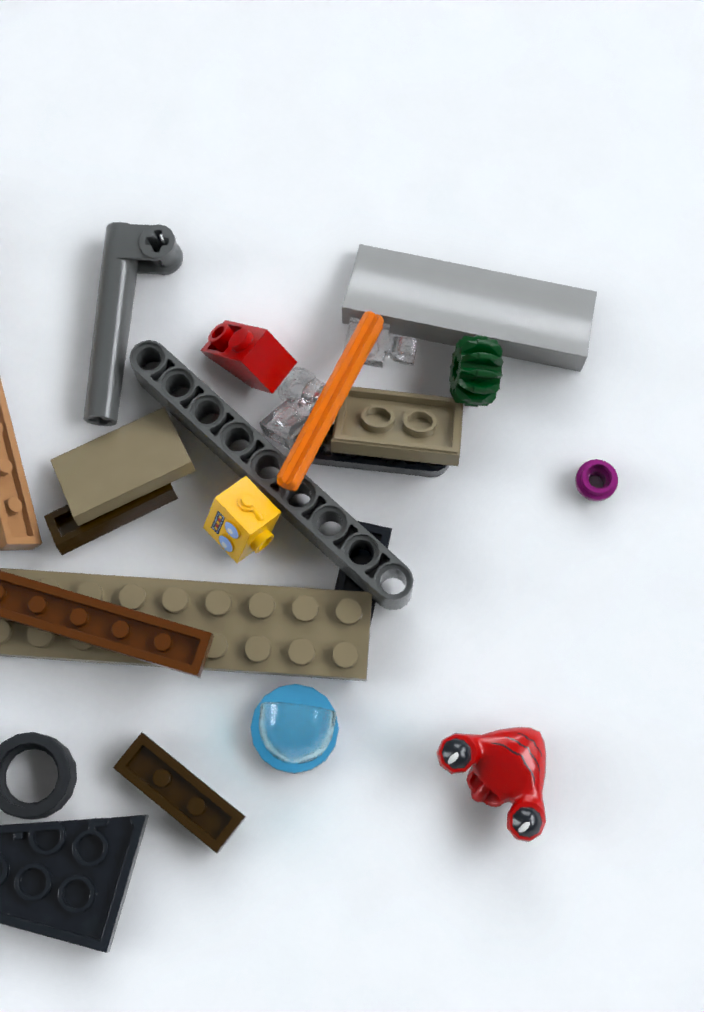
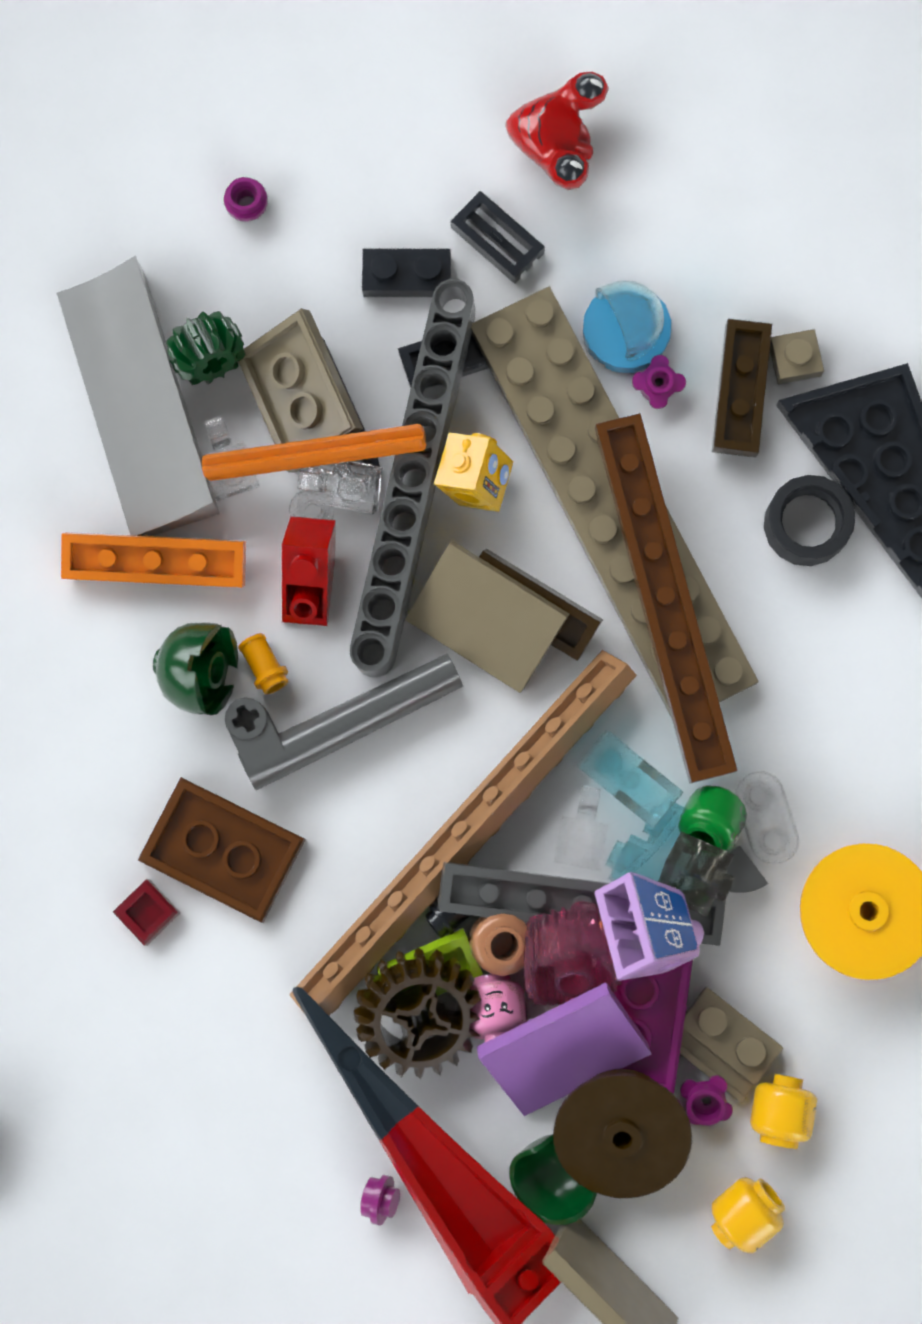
camera: 115 degrees left, 5 degrees up
(74, 116) = (146, 912): none -> dark red tile
(83, 188) = (221, 850): none -> reddish brown tile
(179, 861) = (796, 356): none -> dark tan plate
(198, 286) = (263, 663): none -> light orange pin
(222, 231) = (195, 665): none -> dark green cylinder
(237, 733) = (658, 395): none -> magenta plate
(329, 250) = (153, 559): none -> orange plate
(440, 651) = (523, 262): none -> black tile
(455, 574) = (404, 271): none -> black plate

